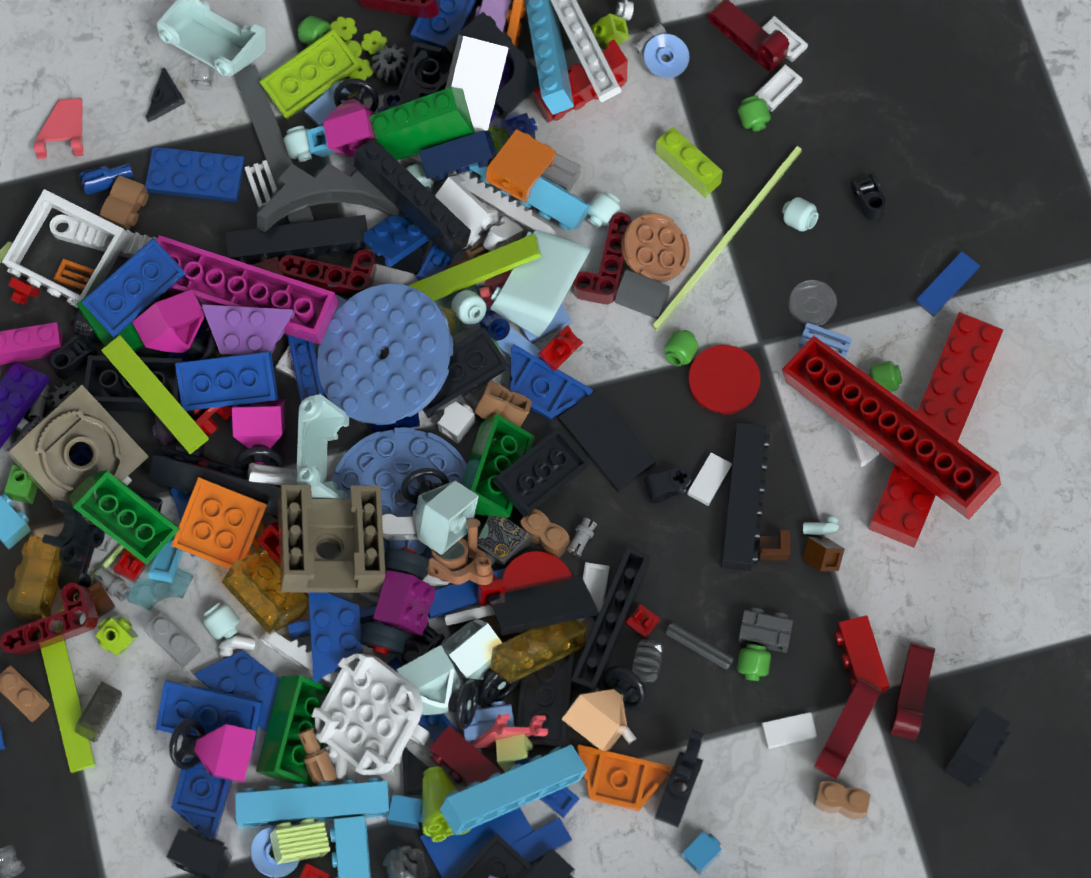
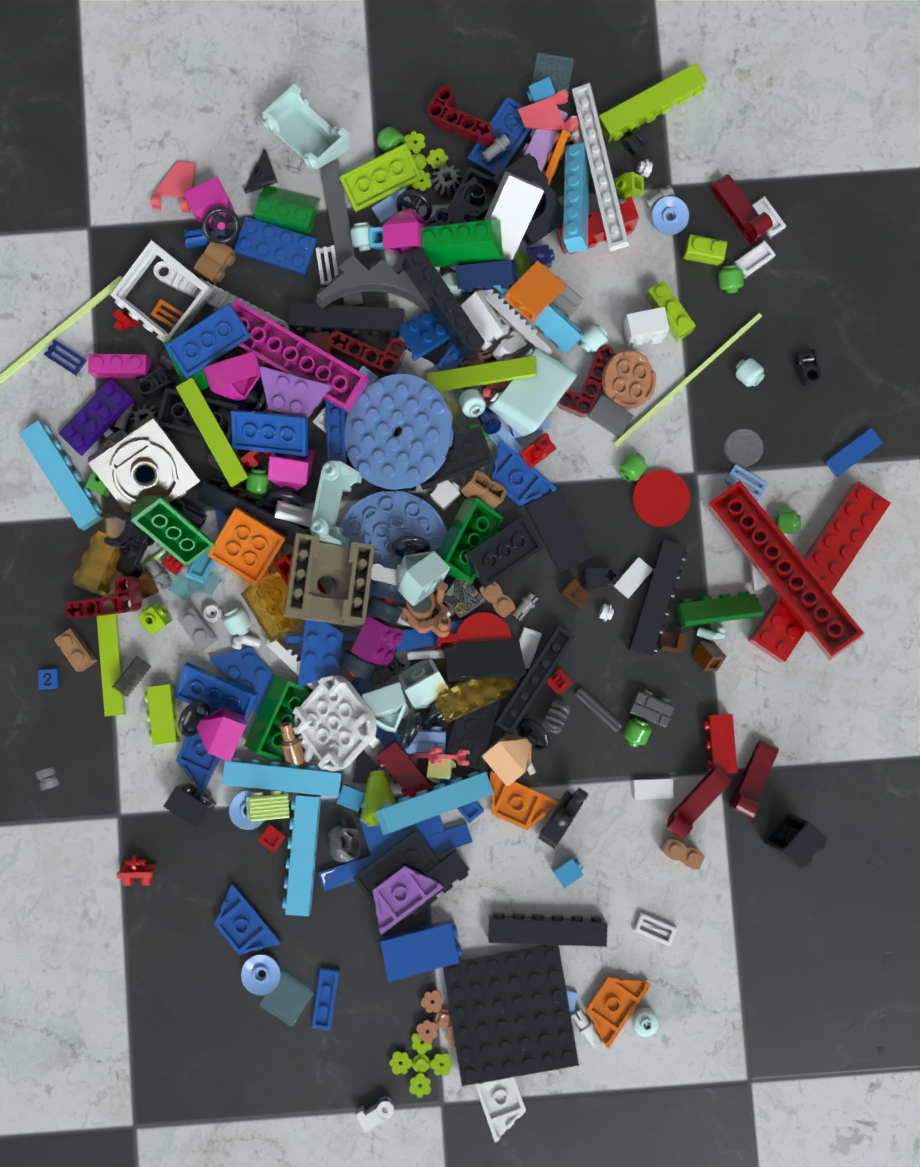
camera: 10 degrees right, 15 degrees up
(112, 143) = (213, 210): none -> piece
(144, 754) = (162, 714): none -> lime brick
(183, 614) = (207, 613): none -> white plate
(202, 131) = (287, 209): none -> green slope
(220, 448) = (258, 482): none -> bright green head
(444, 14) = (495, 148): none -> light grey pin
(640, 511) = (575, 594): none -> reddish brown panel
(662, 184) = (645, 327): none -> white brick
(684, 525) = (606, 612): none -> white plate
(716, 87) = (705, 250): none -> lime brick
(822, 496) = (718, 610): none -> green slope

